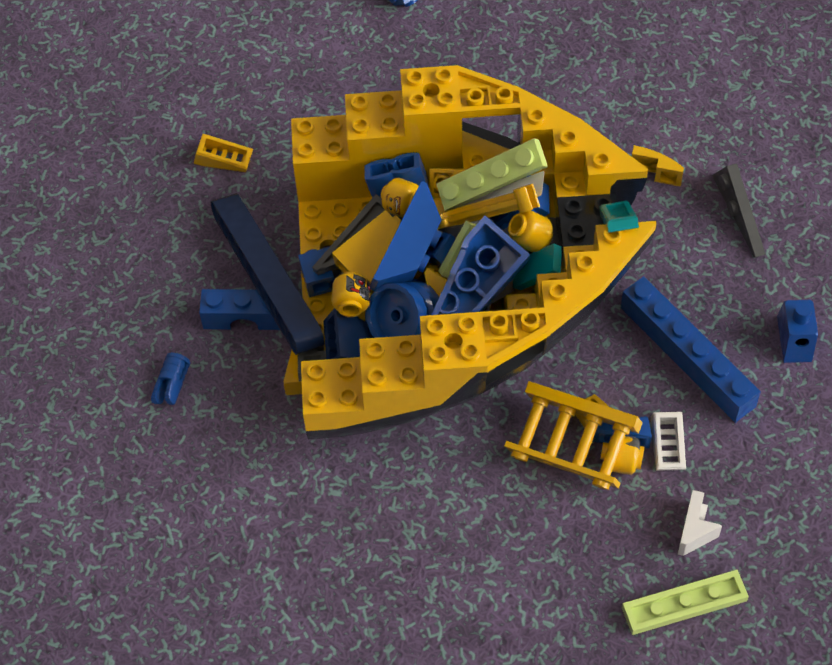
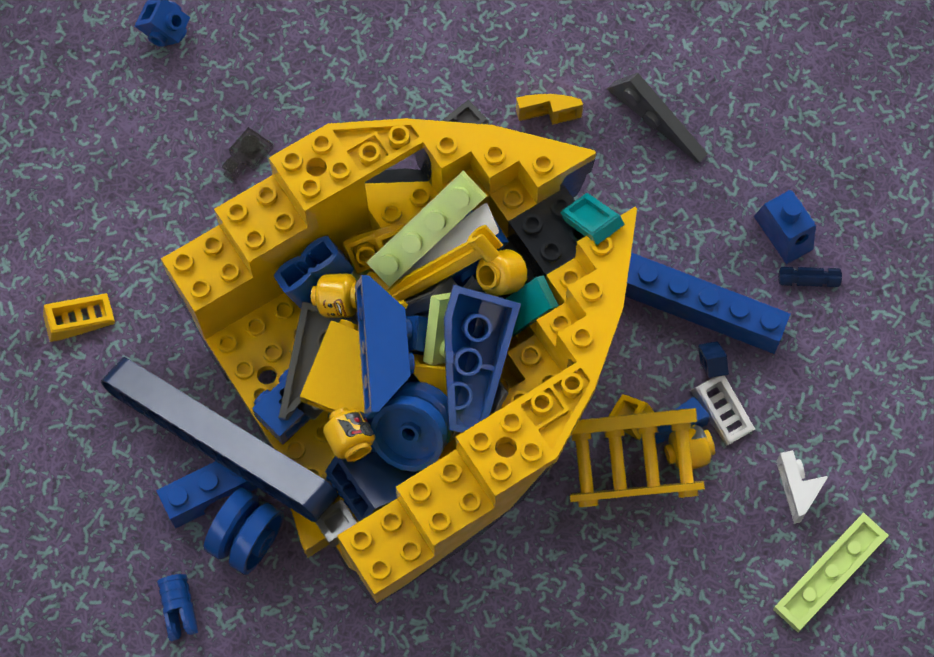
camera: 30 degrees left, 10 degrees up
(247, 347) = (243, 530): none -> blue wheel
(680, 399) = (713, 359): none -> dark blue piece
(797, 378) = (810, 276): none -> dark blue axle

